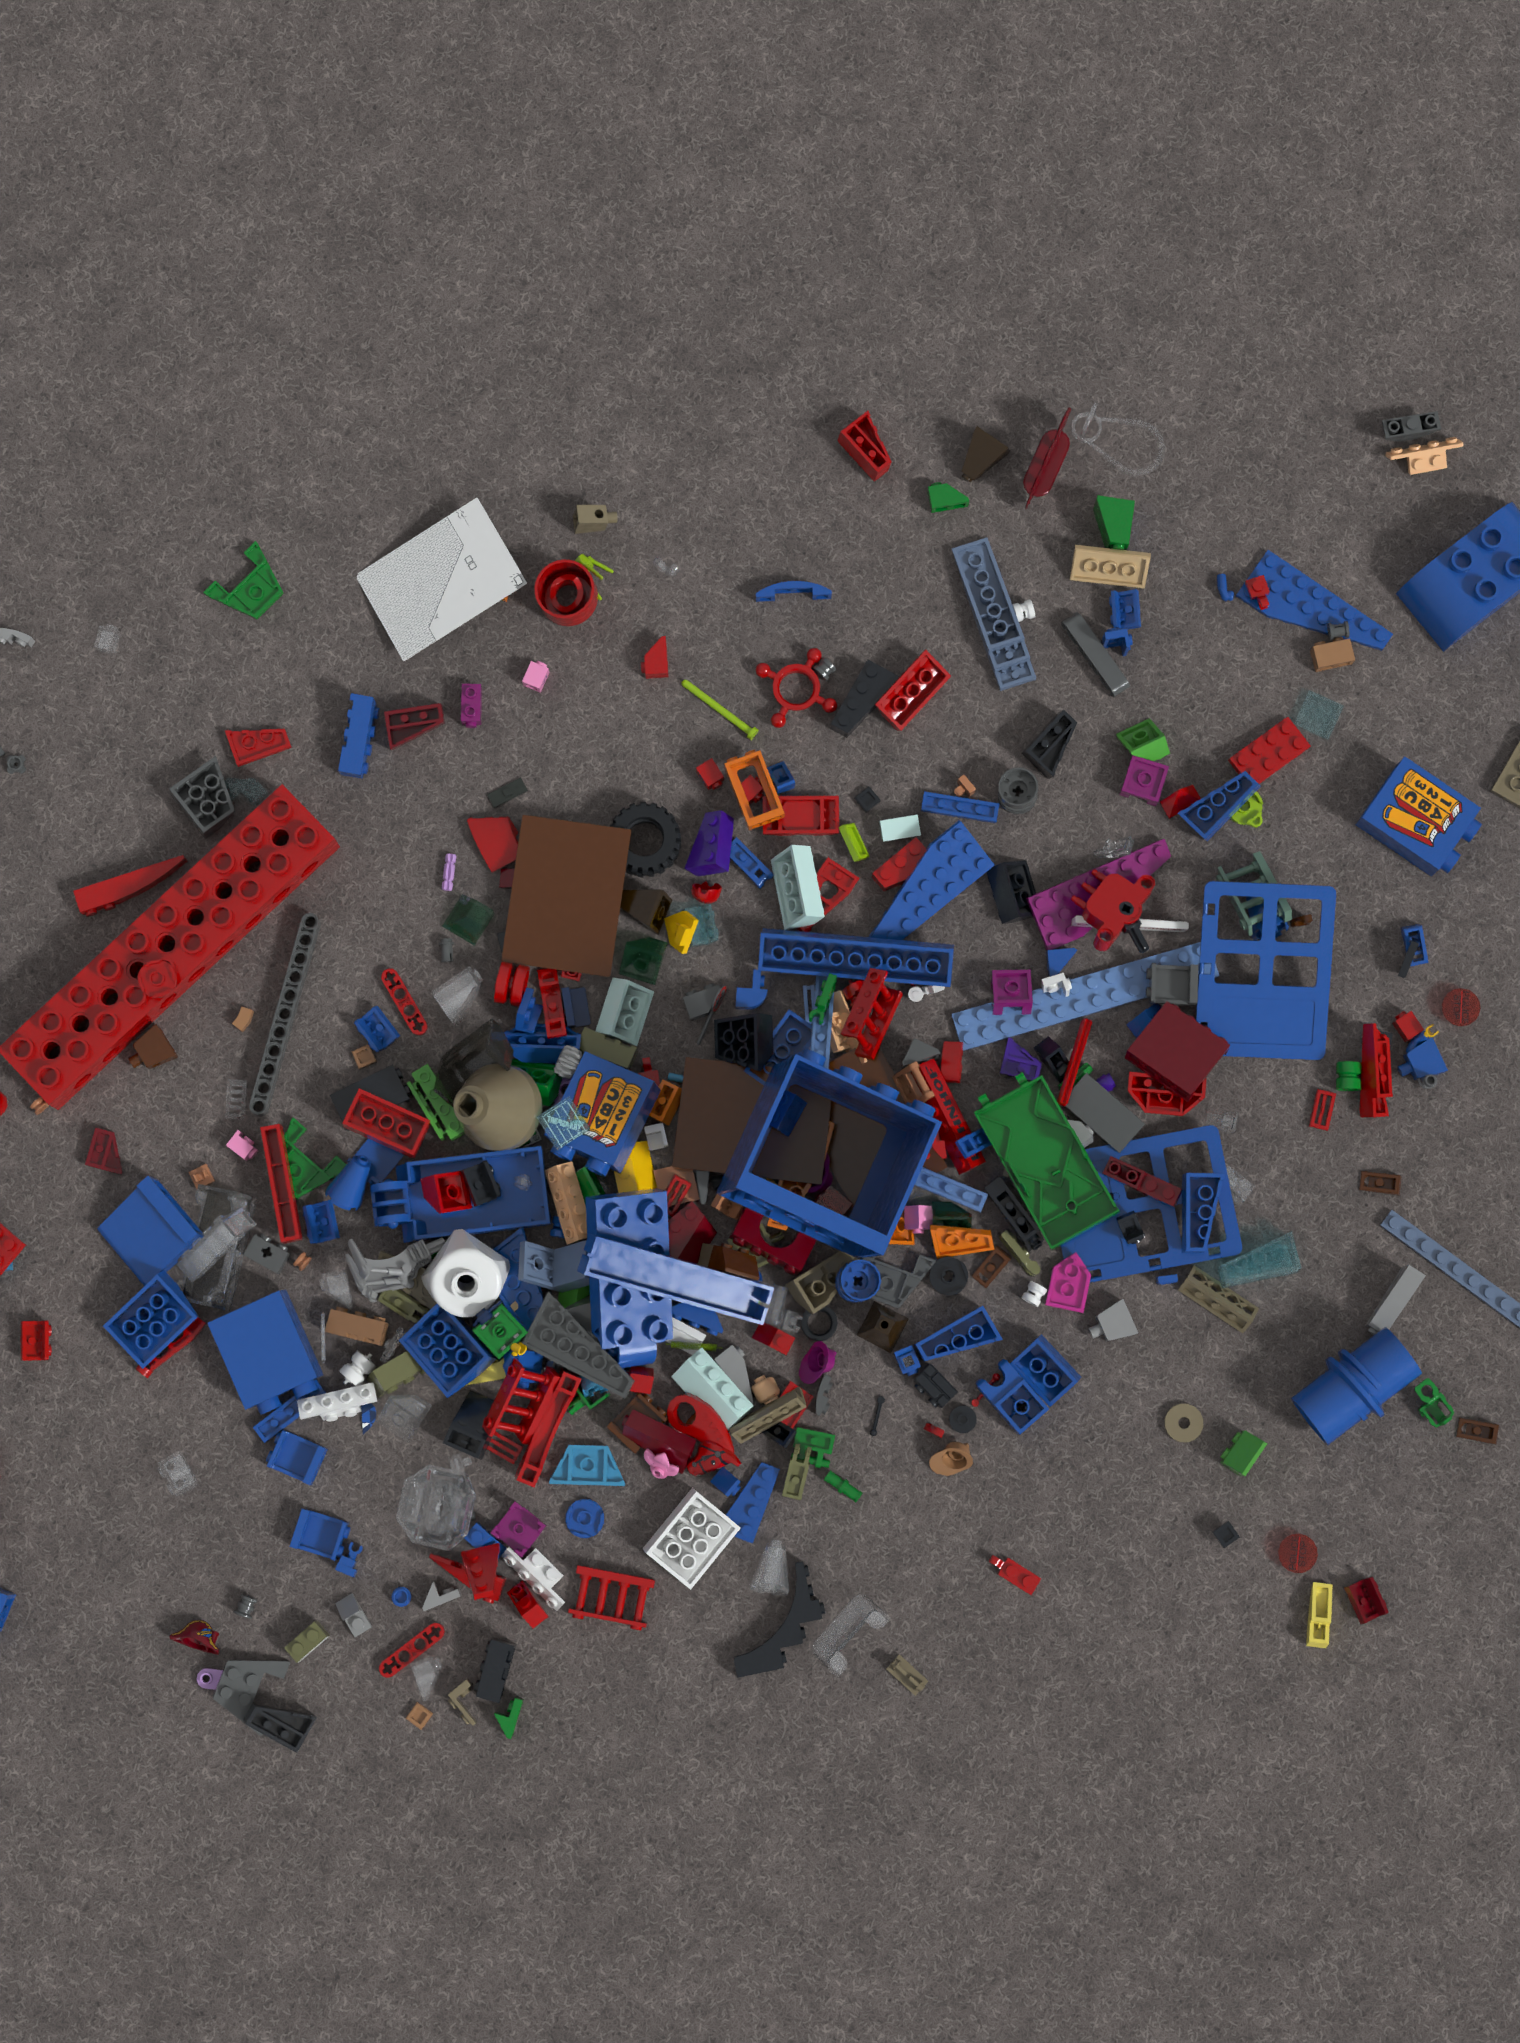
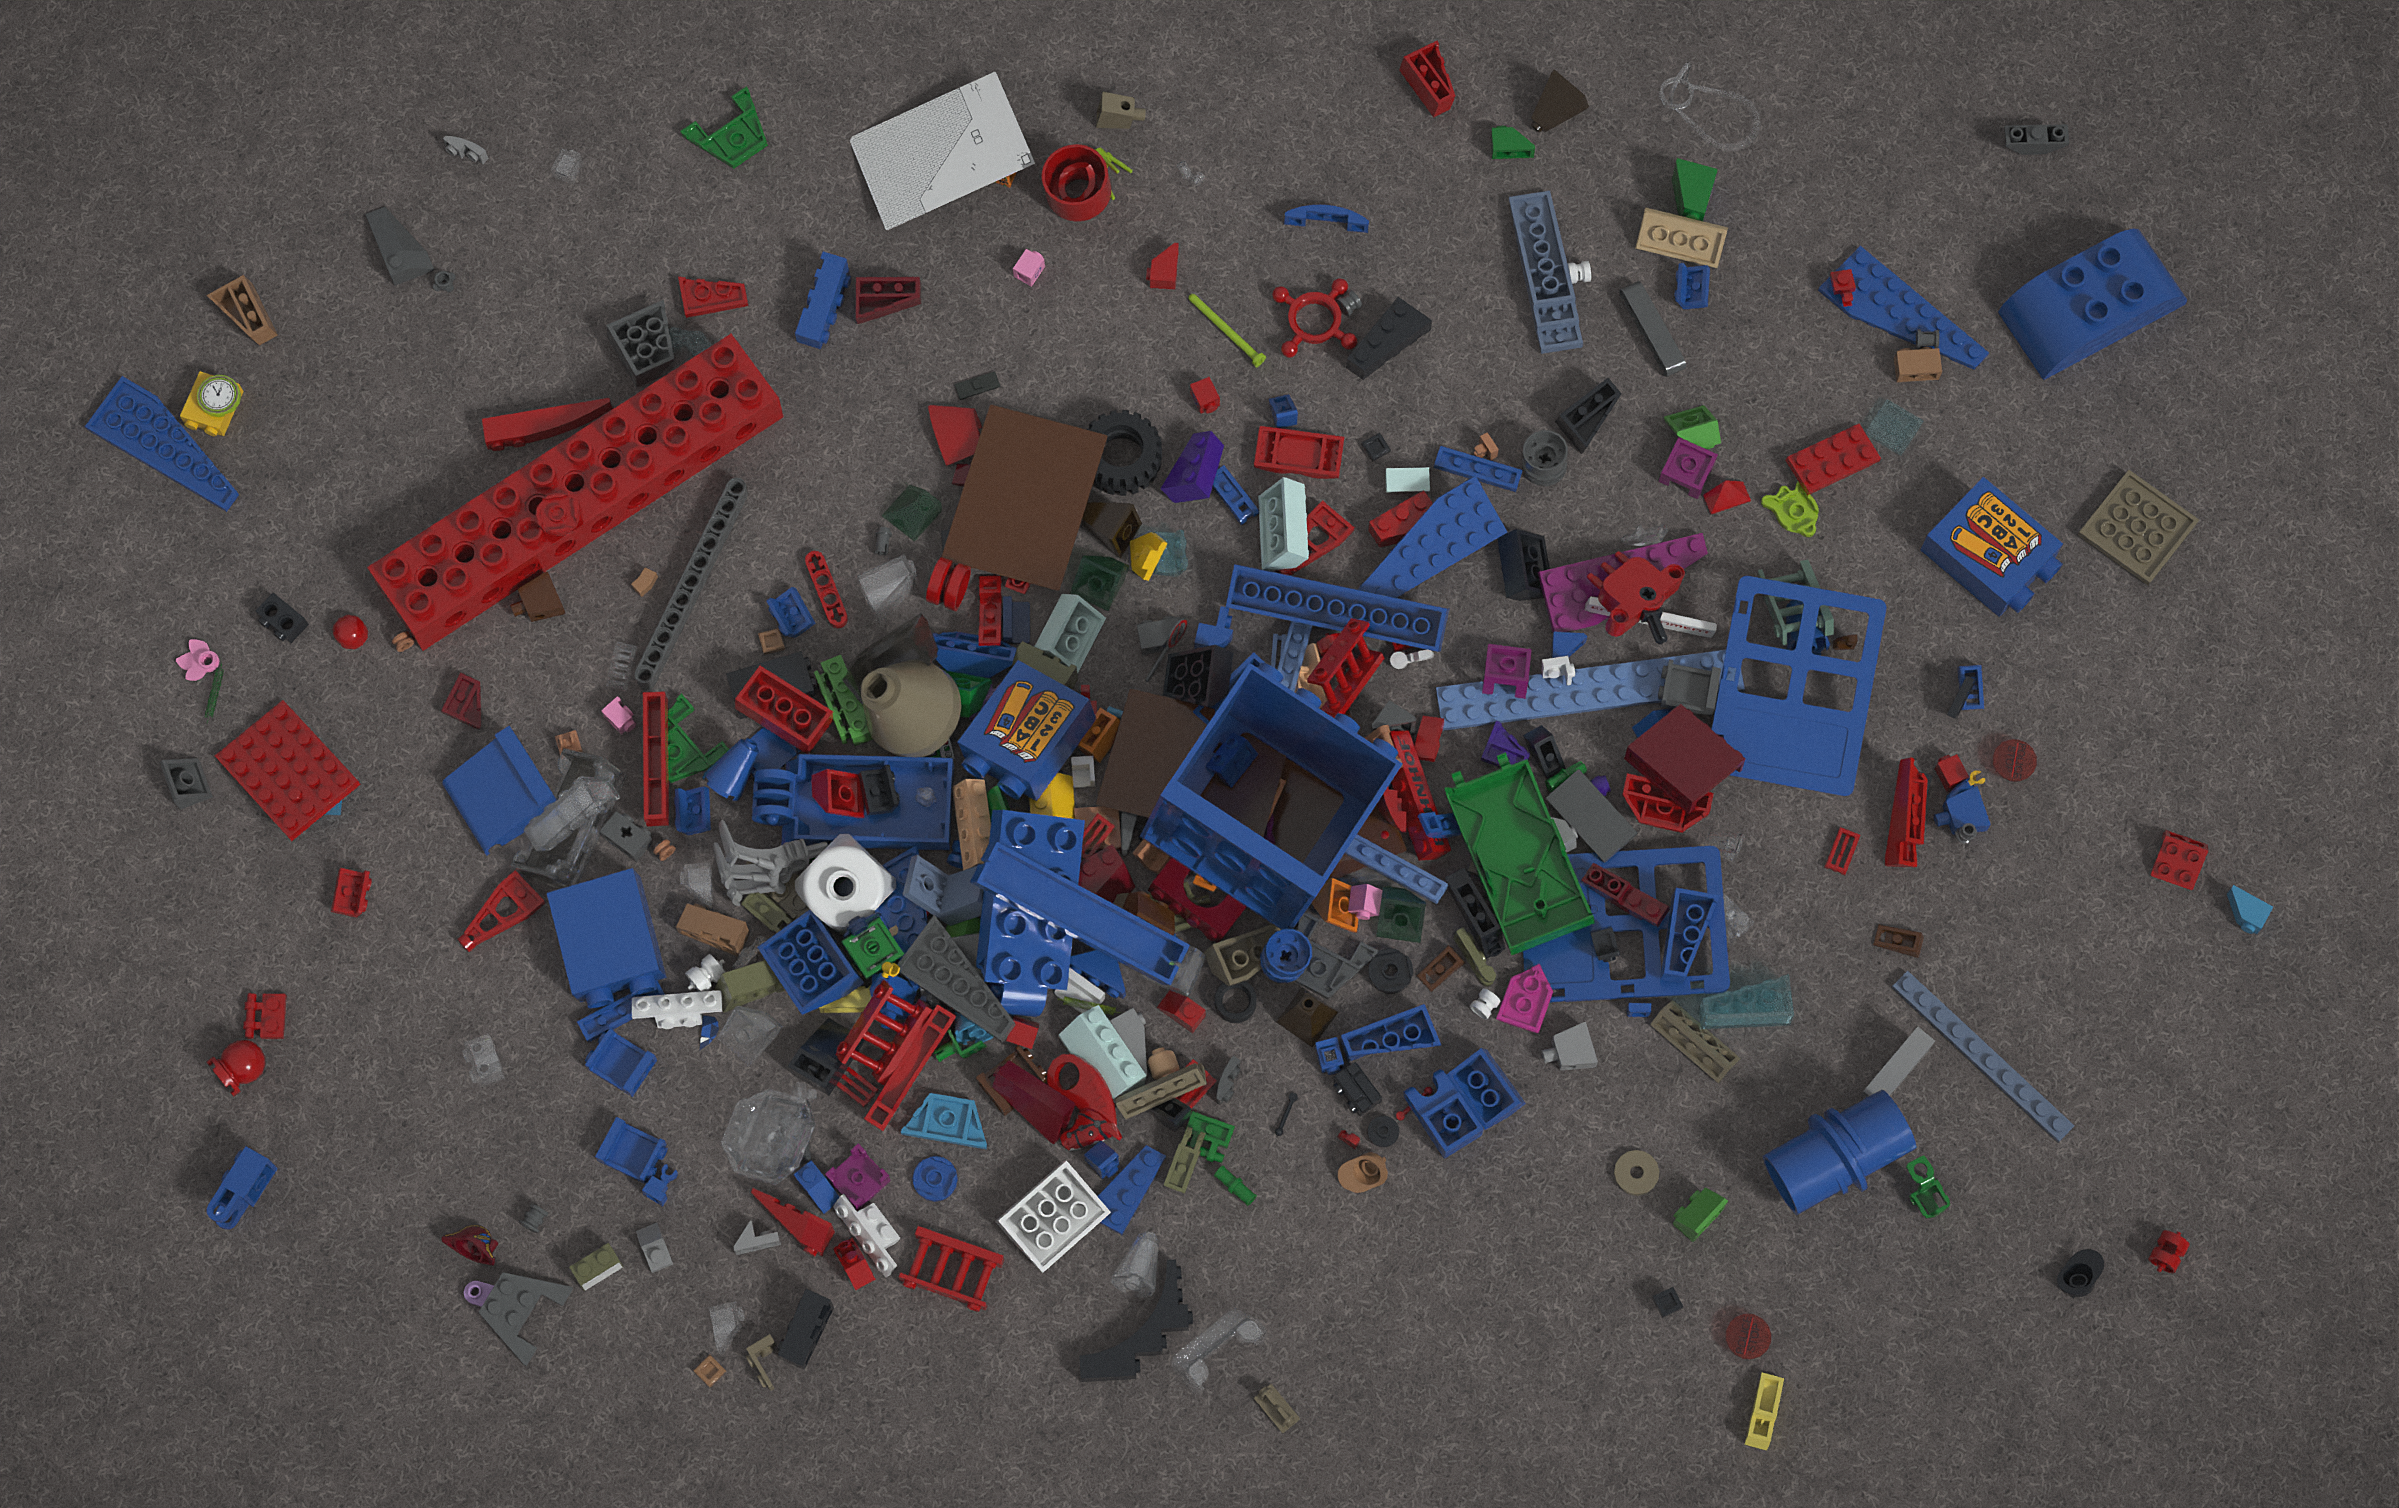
camera: 10 degrees right, 10 degrees down
(151, 1319) = (484, 883): blue slope -> none
(281, 1725) = (548, 1353): black wedge -> none
(323, 1355) = (672, 935): clear window -> none
(401, 1596) = (712, 1234): blue plate -> none
(413, 1651) = (712, 1292): red beam -> none
(448, 874) = (898, 459): lavender axle -> none
(471, 705) = (953, 287): magenta brick -> none
(481, 1569) = (808, 1208): red wing -> none
(507, 1722) = (811, 1392): green slope -> none
(528, 1013) = (960, 618): blue bracket -> none
(563, 1123) = (981, 731): clear light blue tile -> none
(567, 1061) = (996, 670): light grey gear -> none
(660, 1465) = (1030, 1128): bright pink plate -> none
(706, 893) = (1180, 519): red hair -> none
(752, 789) = (1246, 418): red brick -> none
(754, 759) = (1251, 382): orange piece -> none
(790, 1321) = (1203, 993): clear tile -> none
(817, 1361) = (1226, 1042): magenta piece -> none
(822, 1002) = (1294, 646): green plate -> none
(854, 842) = (1354, 489): lime tile -> none
(912, 690) = (1442, 337): red slope -> none
(959, 1241) = (1408, 932): orange wing -> none
(1016, 1574) = (1419, 1313): red plate -> none
(1047, 461) = (1628, 120): dark red plant -> none
(1074, 1062) = (1567, 756): red axle -> none
(1115, 638) = (1678, 313): blue bracket -> none
(1219, 805) = (1770, 503): blue wedge -> none
(1222, 588) = (1804, 272): blue arm -> none
(1348, 1076) = (1876, 816): green wheel -> none
(1366, 1599) = (1821, 1401): dark red bracket -> none
(1425, 457) = (2049, 174): light nougat bracket -> none
(1478, 1431) = (1977, 1231): reddish brown slope -> none

